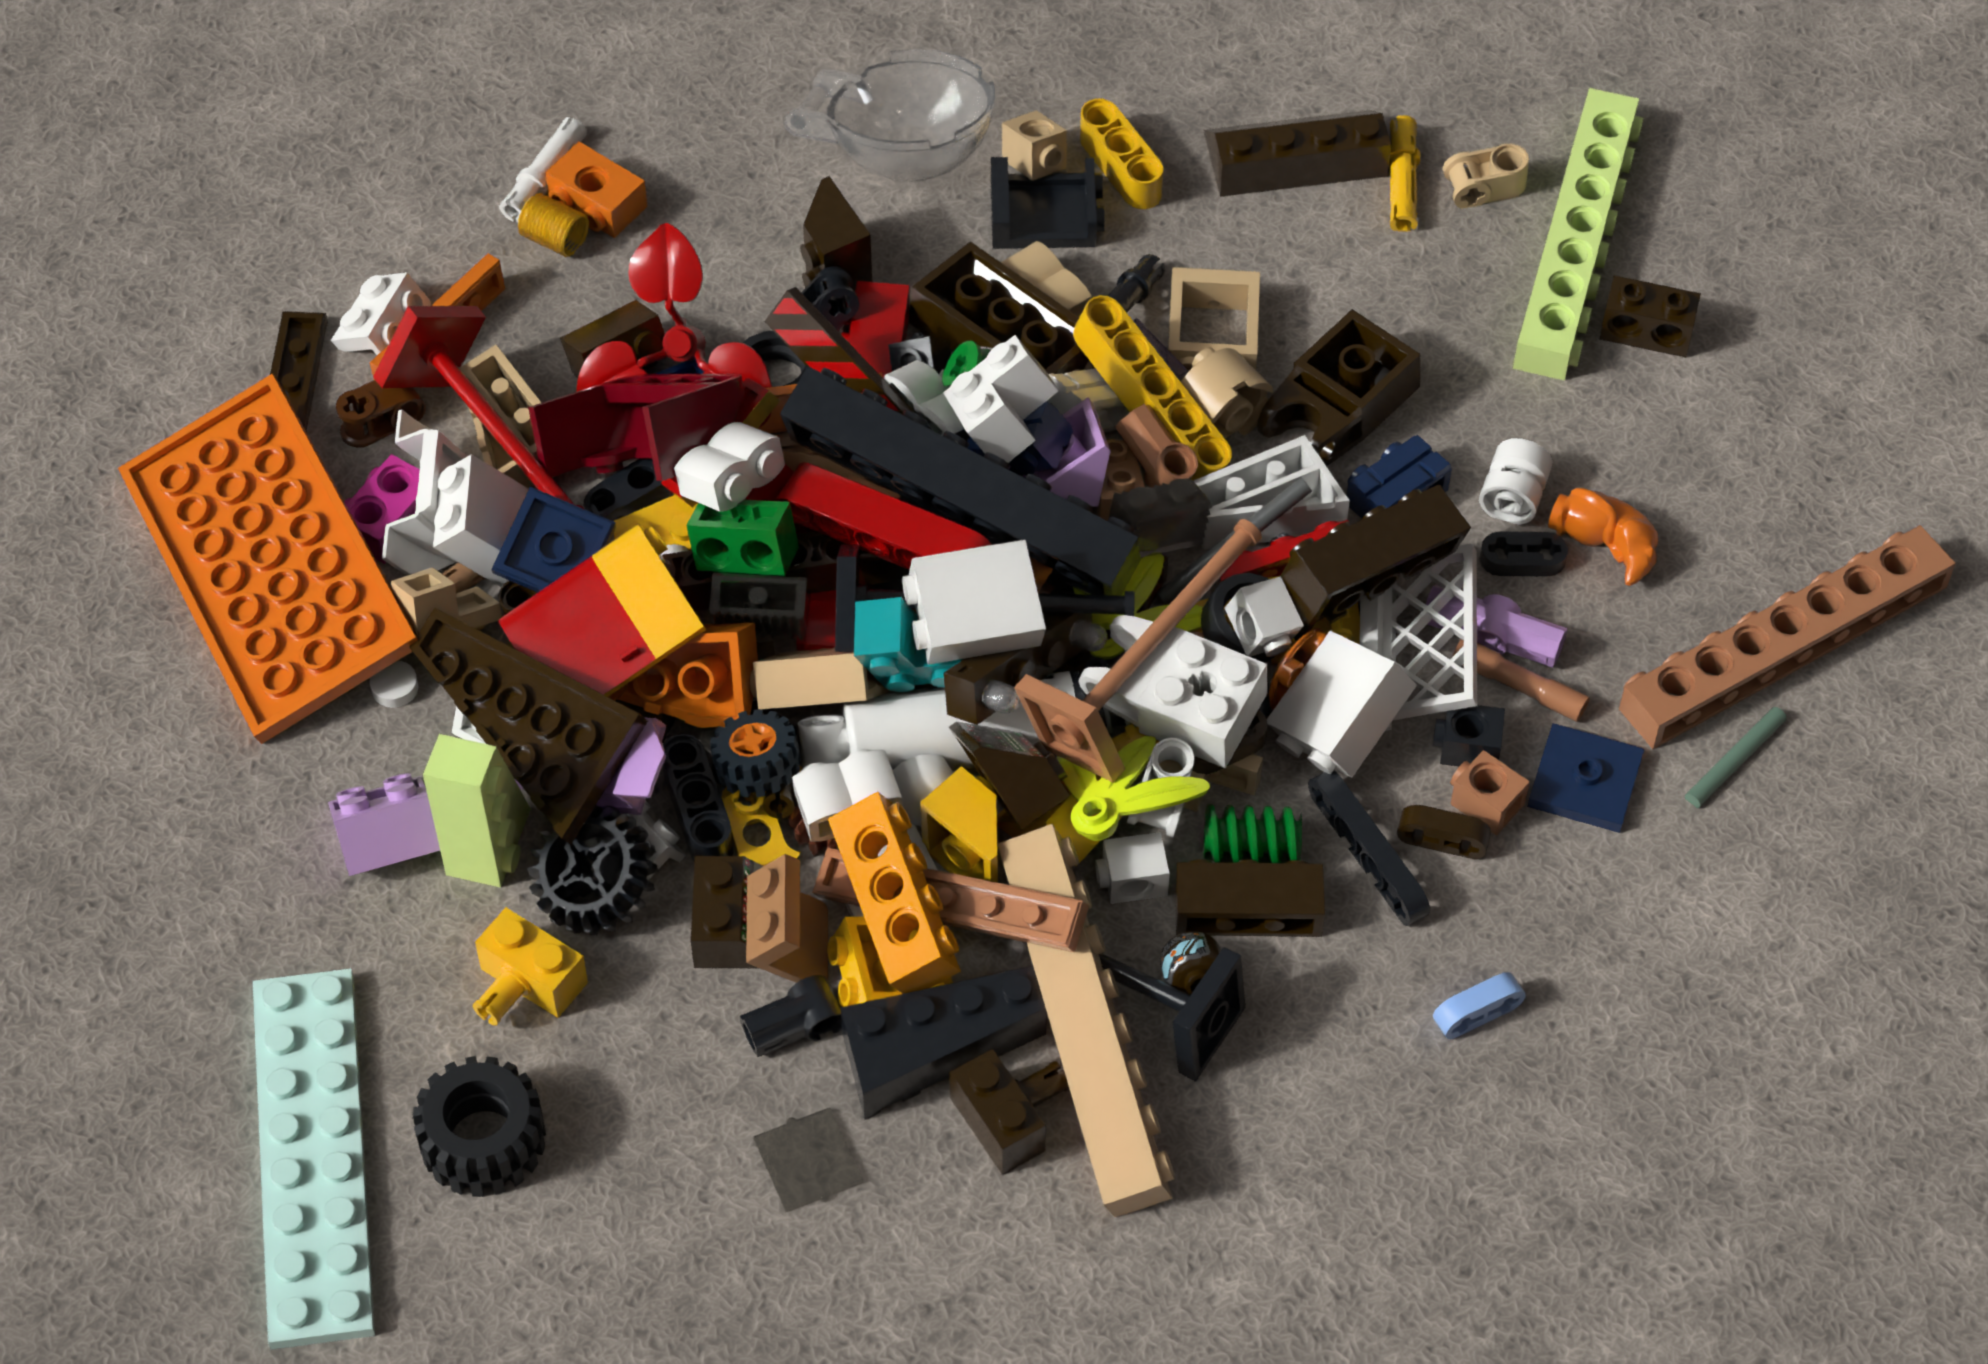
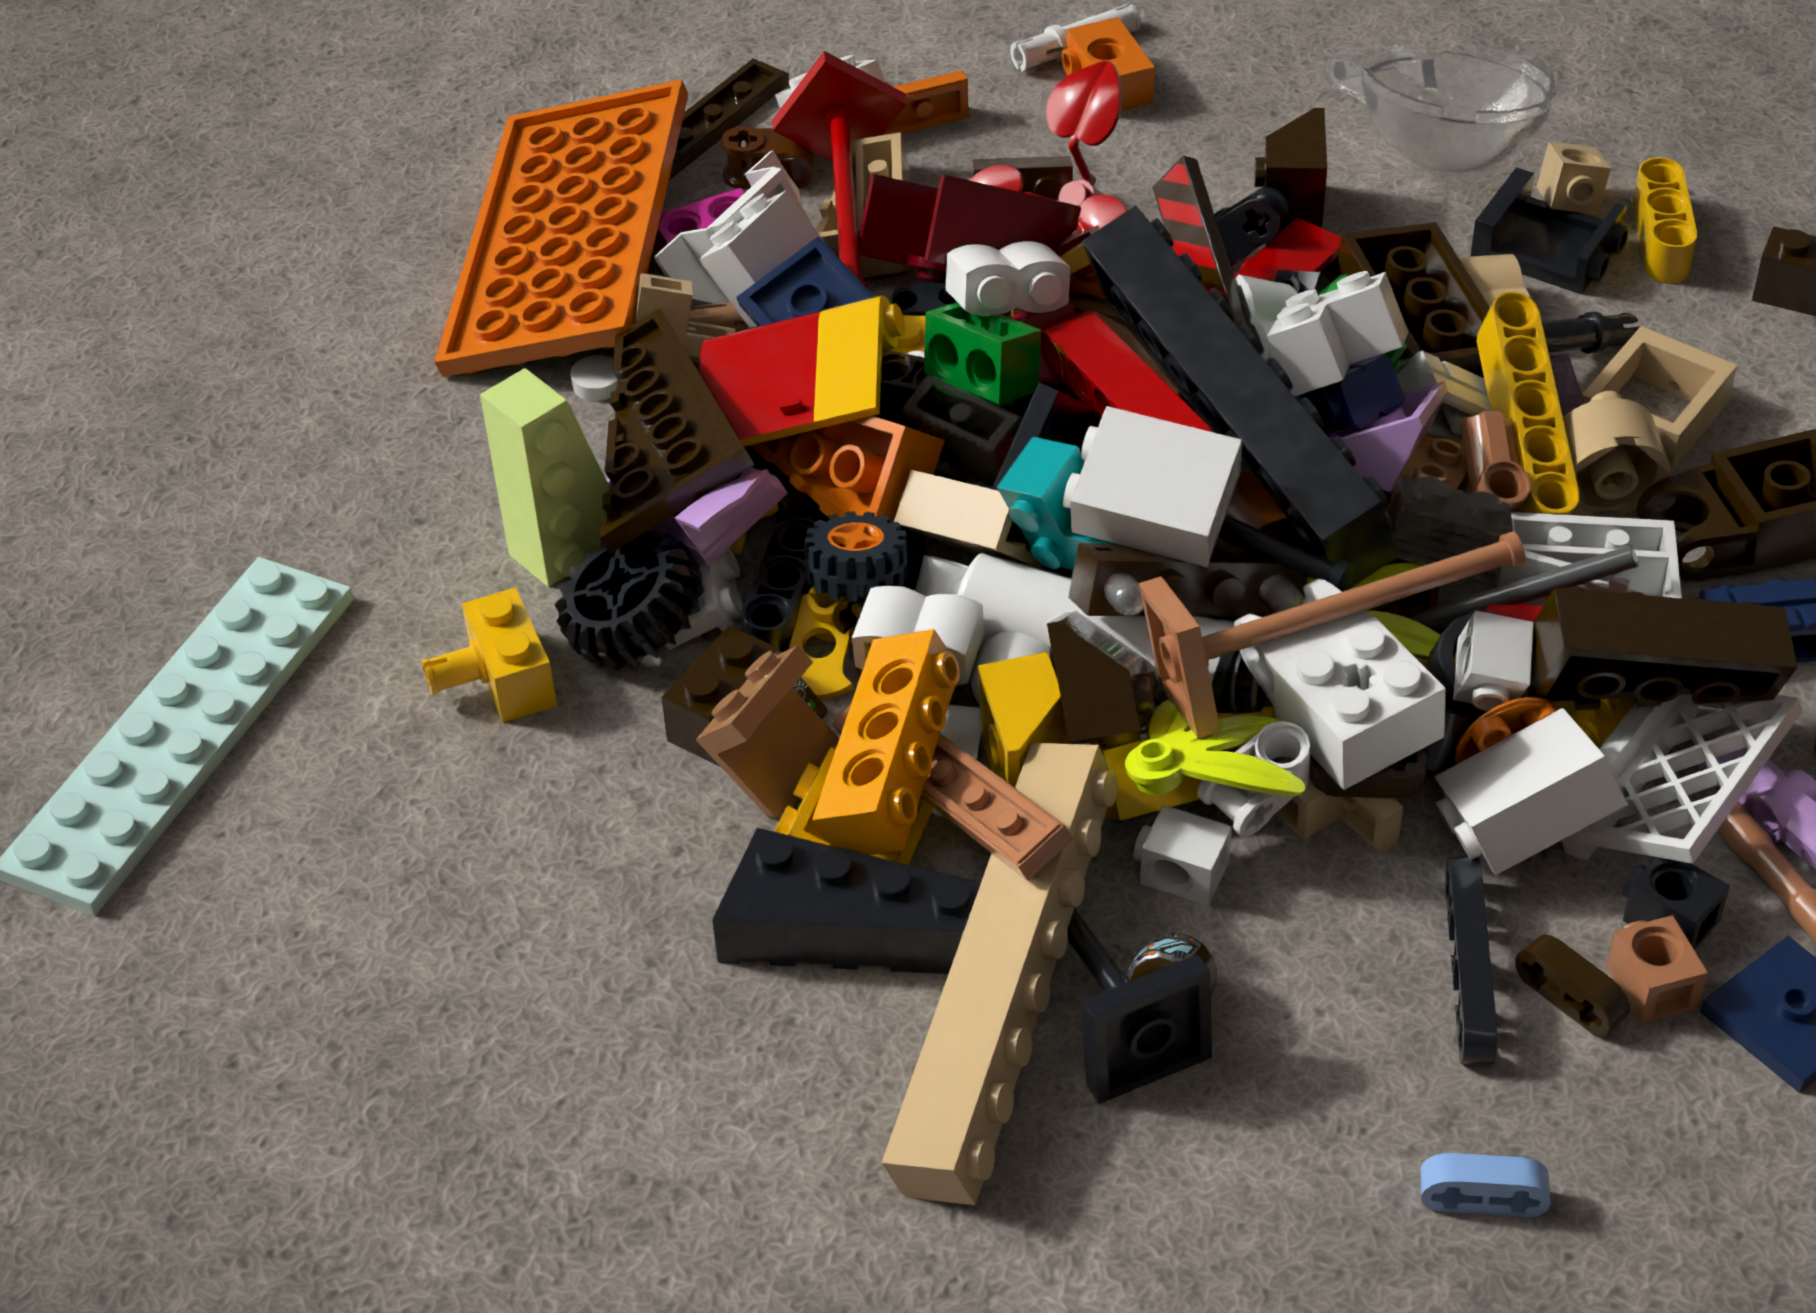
camera: 35 degrees right, 10 degrees down
(384, 823) = (456, 477): lavender slope -> none
(486, 1160) = (342, 802): black tyre -> none
(552, 223) = (1039, 68): yellow piece -> none
(803, 1013) = (715, 824): black piece -> none
(807, 1159) = (629, 970): clear smoke piece -> none
(1003, 1108) = (857, 1013): dark brown brick -> none
(1250, 898) = (1292, 945): dark brown brick -> none
(1252, 834) = (1340, 886): green piece -> none

